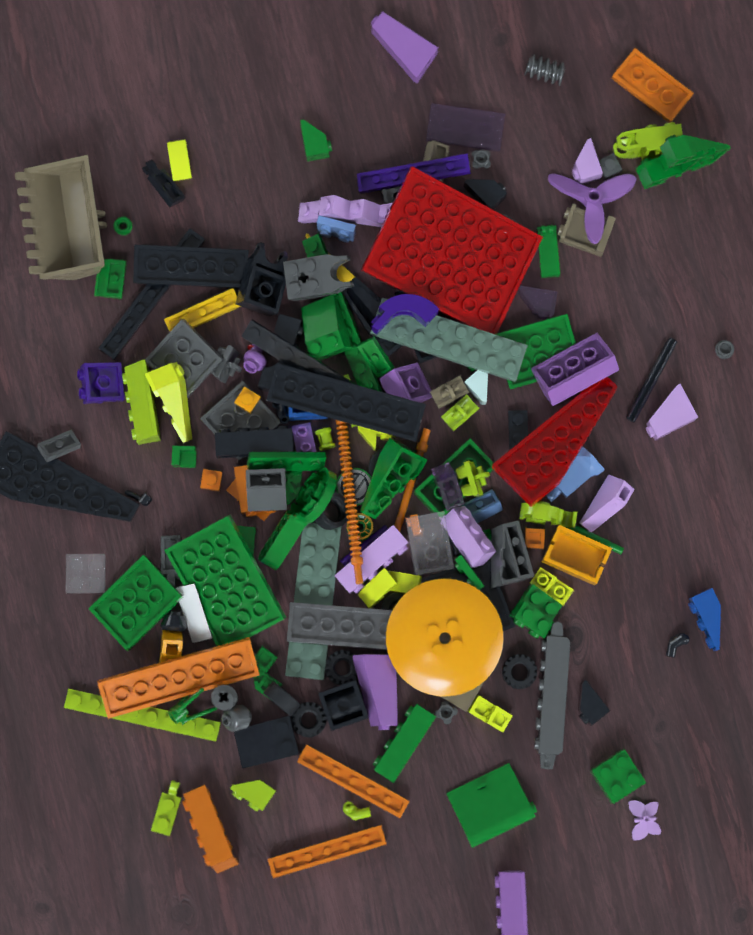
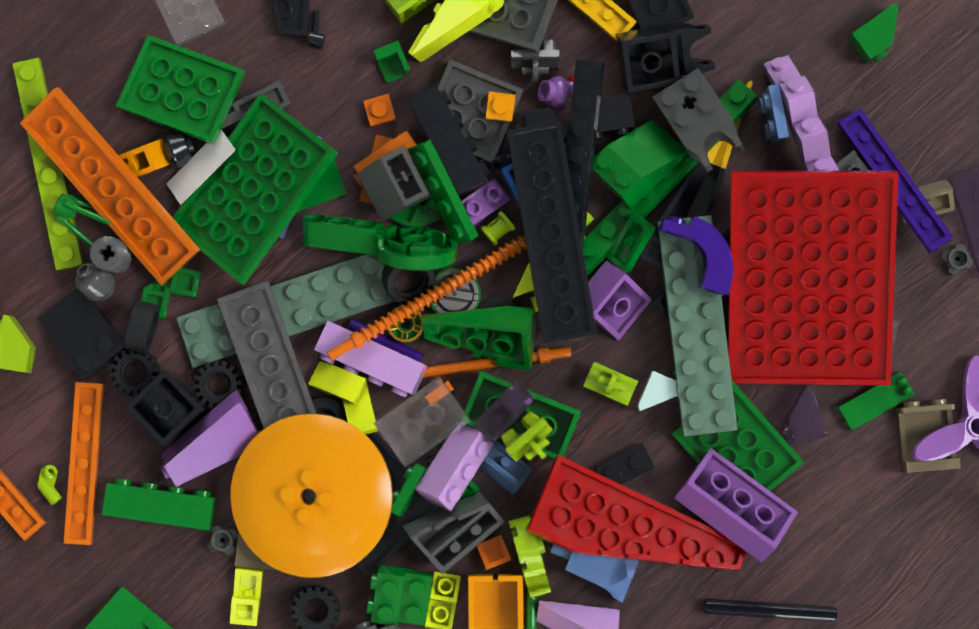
camera: 70 degrees right, 5 degrees up
(449, 392) = (630, 358): dark tan hips -> none
(486, 191) = (916, 286): black slope -> none

